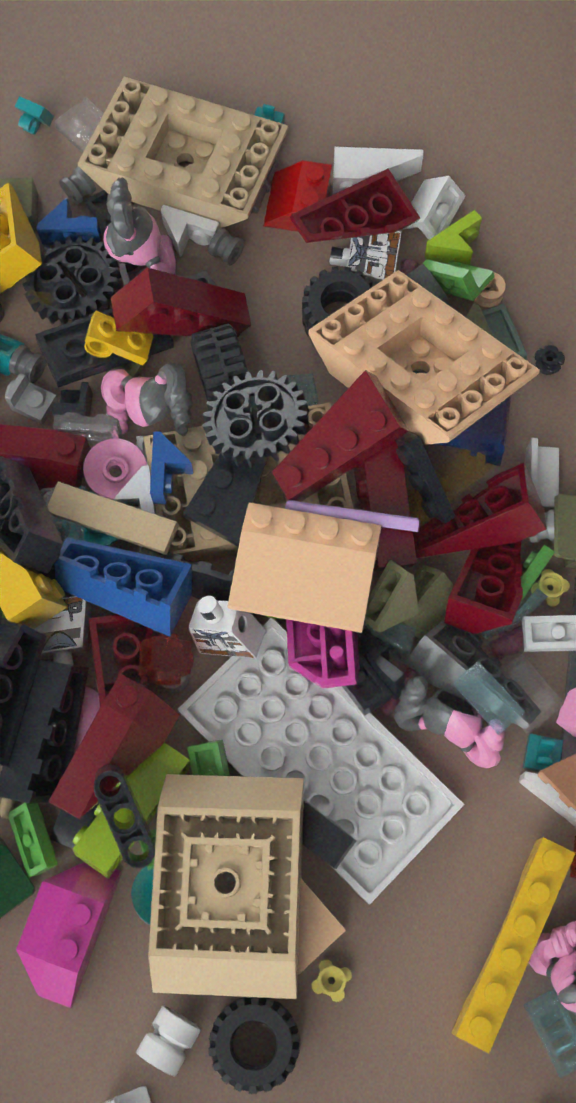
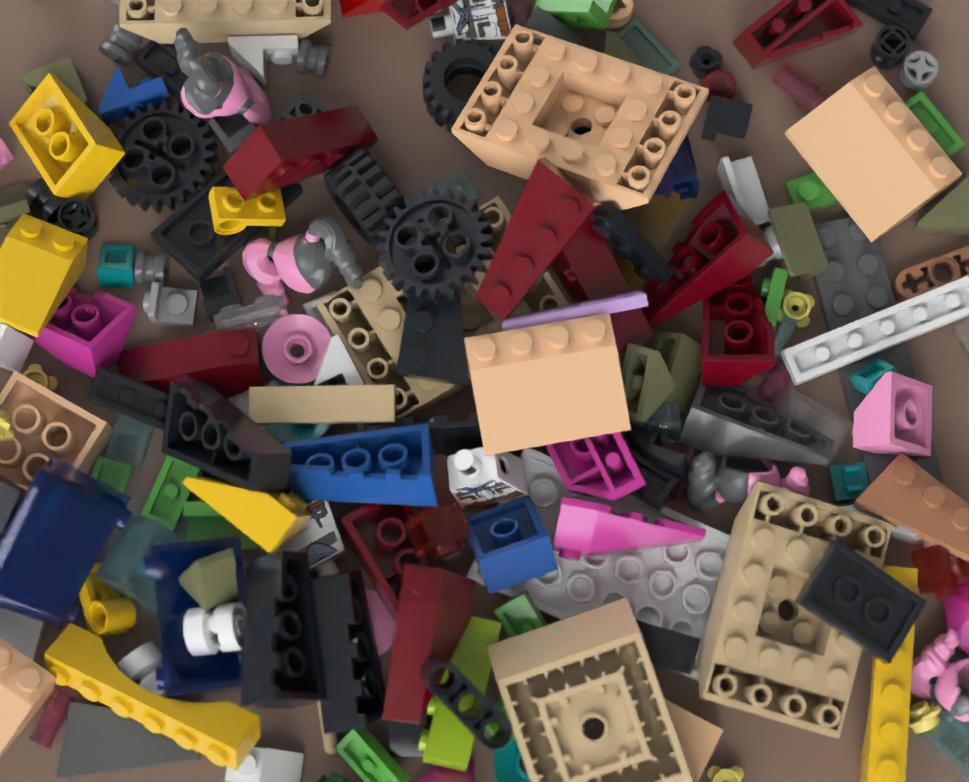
camera: 25 degrees left, 5 degrees up
(165, 462) = (355, 322): blue slope -> none
(222, 695) = (510, 544): none -> blue slope
(297, 710) = (592, 530): none -> dark pink wedge
(488, 698) = (779, 448): clear light blue slope -> none
(494, 826) = (749, 654): none -> tan slope
(511, 862) = (861, 601): none -> black tile
(533, 990) = (923, 716): none -> light yellow plate
(549, 408) = (726, 118): none -> black panel
(552, 382) = (719, 84): none -> dark red tile

